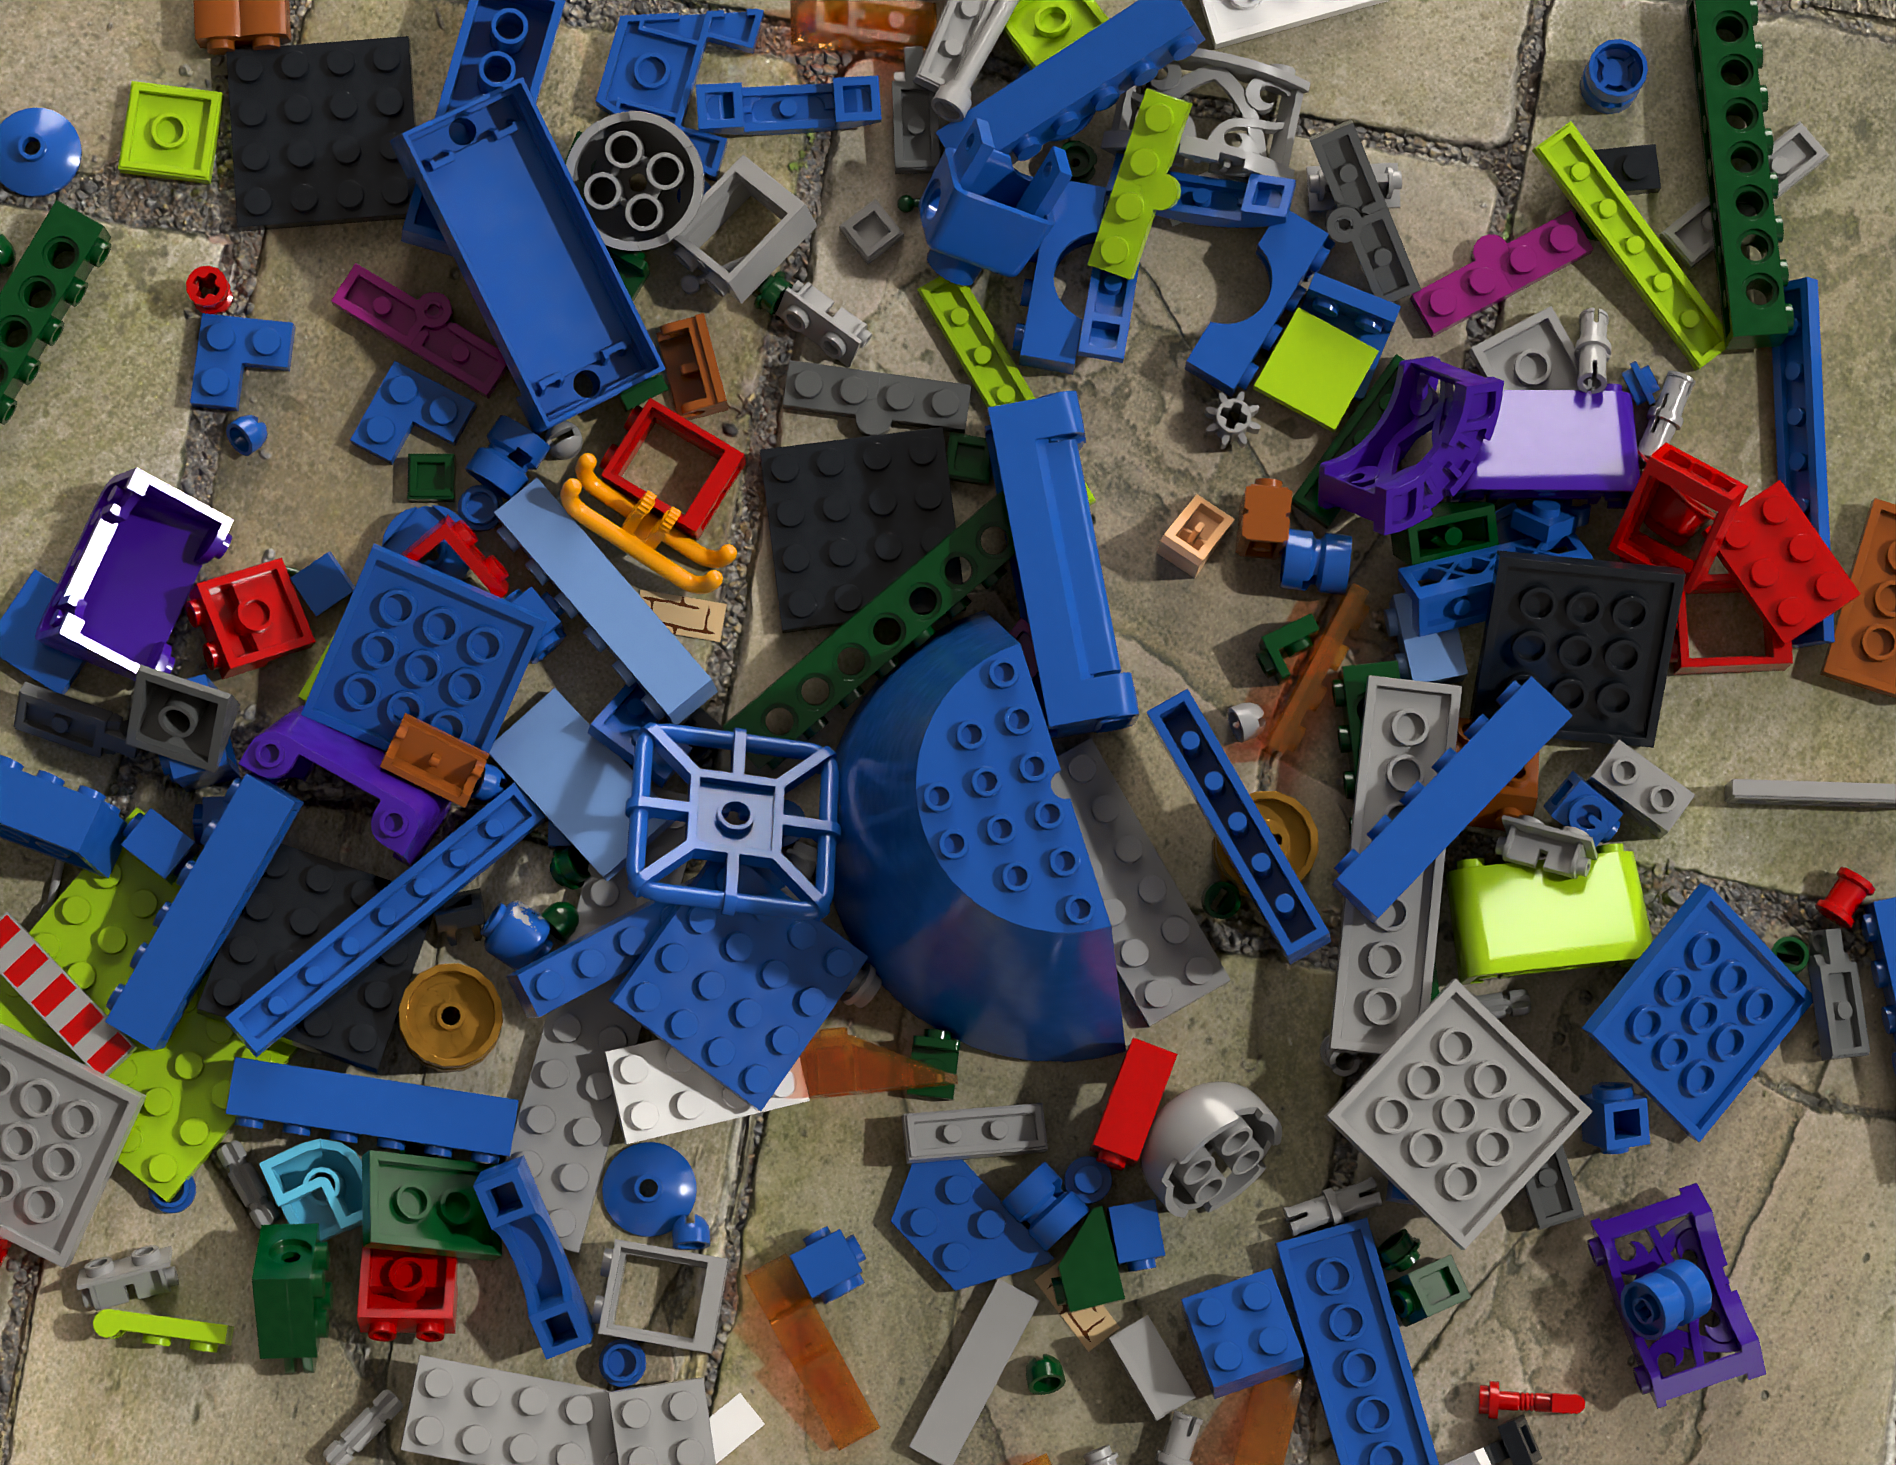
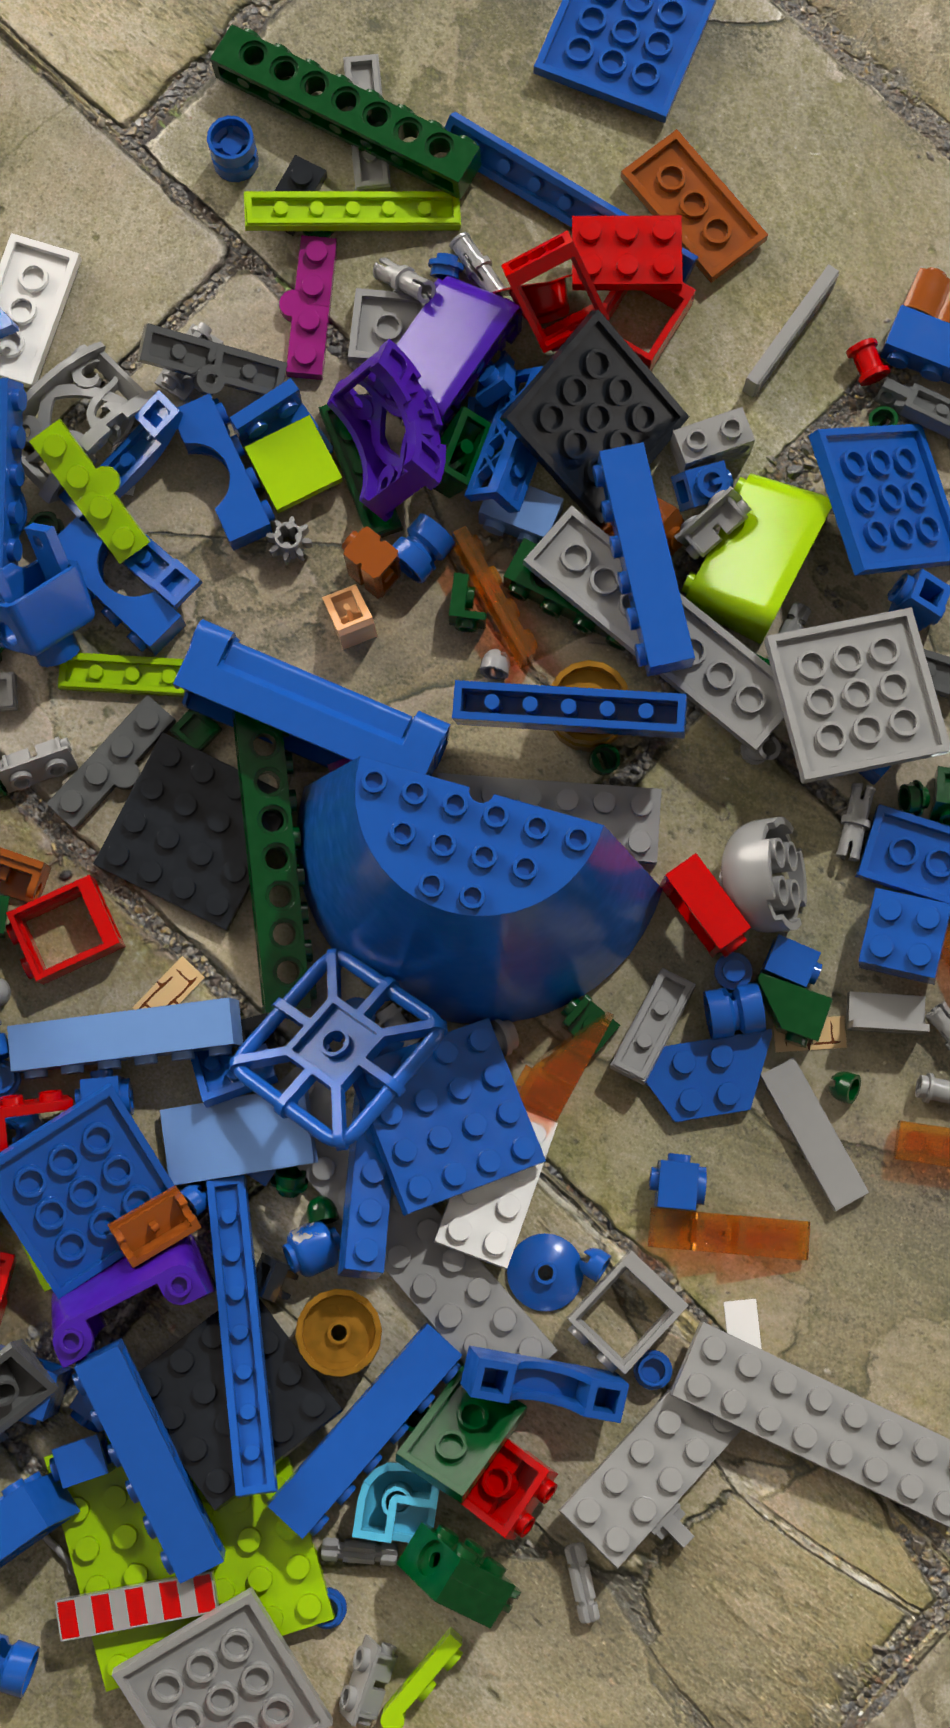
camera: 50 degrees left, 0 degrees up
(643, 530) = (93, 978): light orange piece -> none

